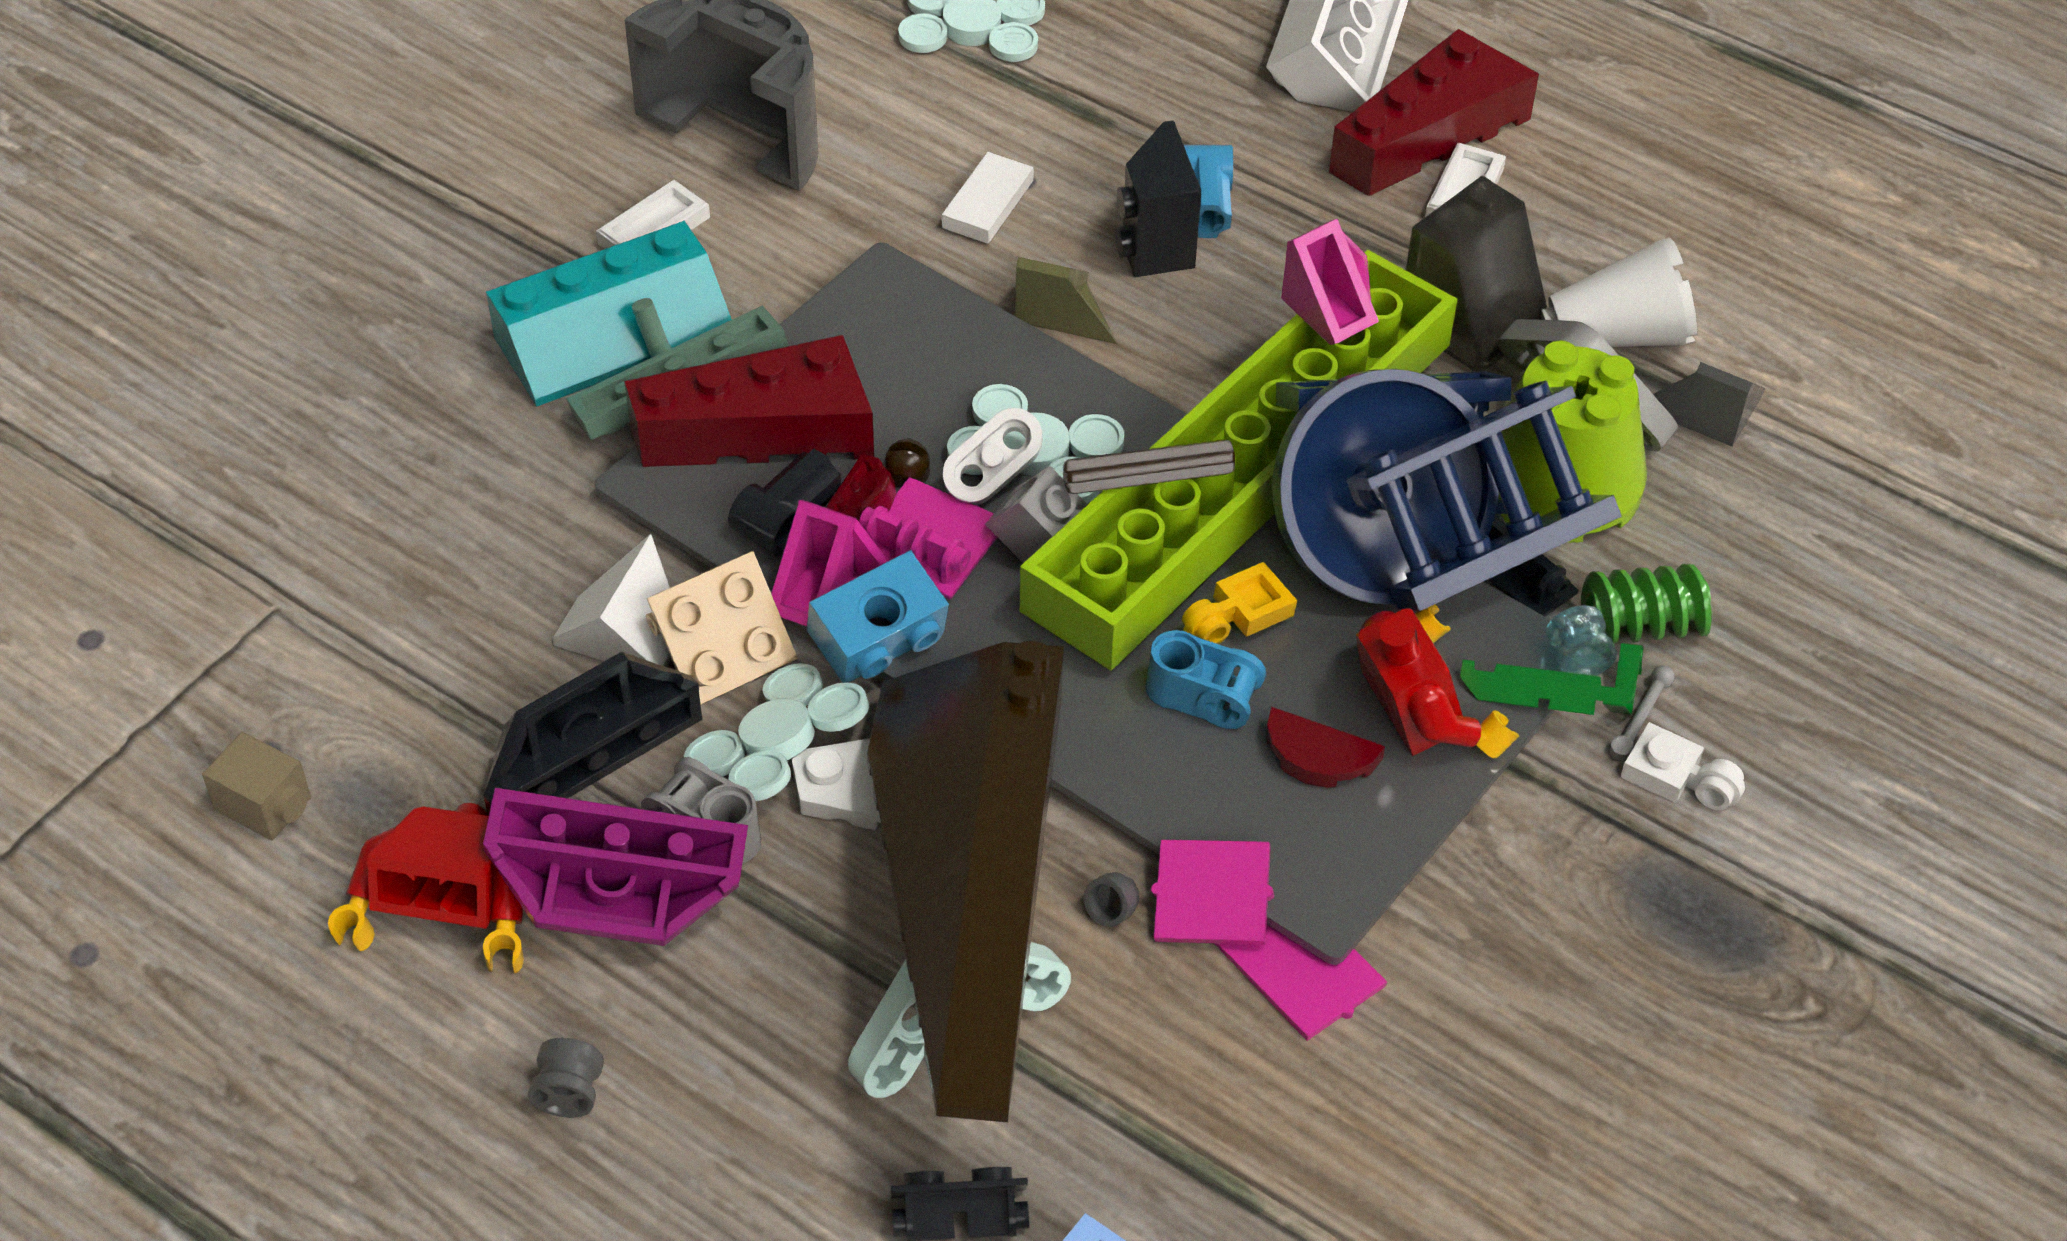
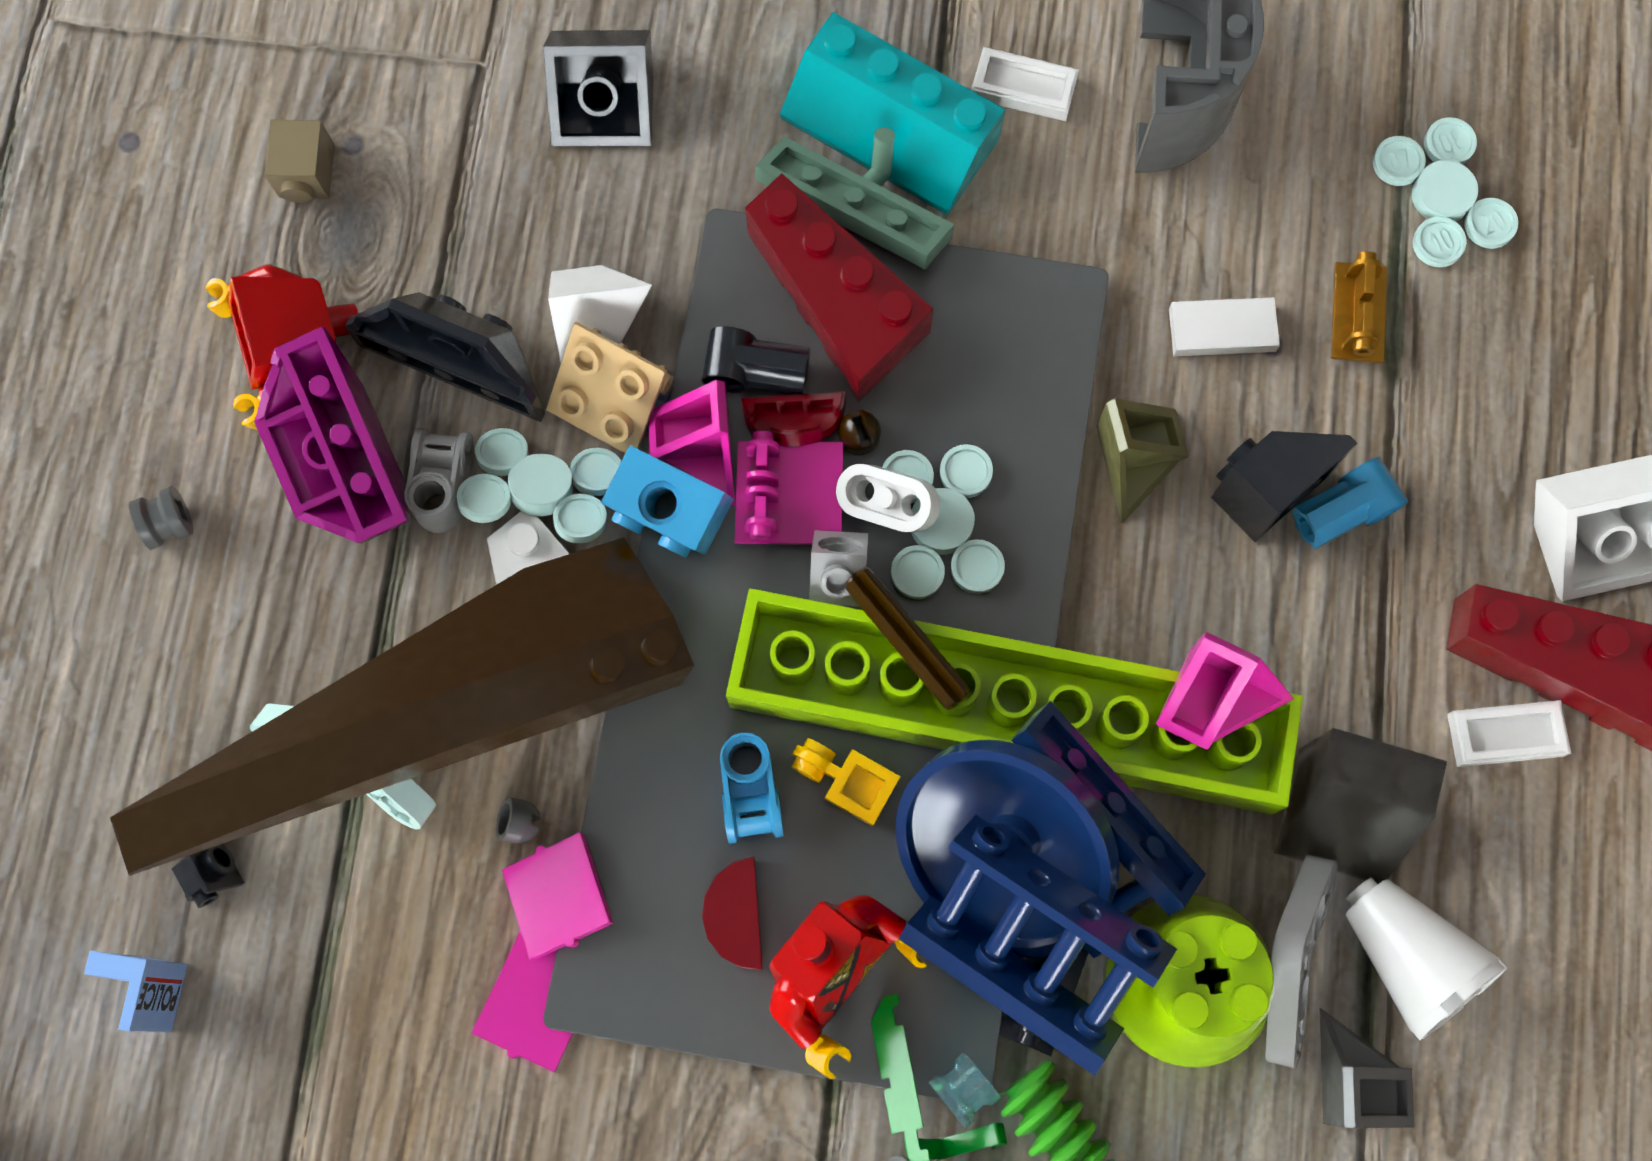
camera: 65 degrees right, 25 degrees up
(396, 509) = (599, 87): none -> black slope
(1045, 112) = (1359, 309): none -> pearl gold hinge

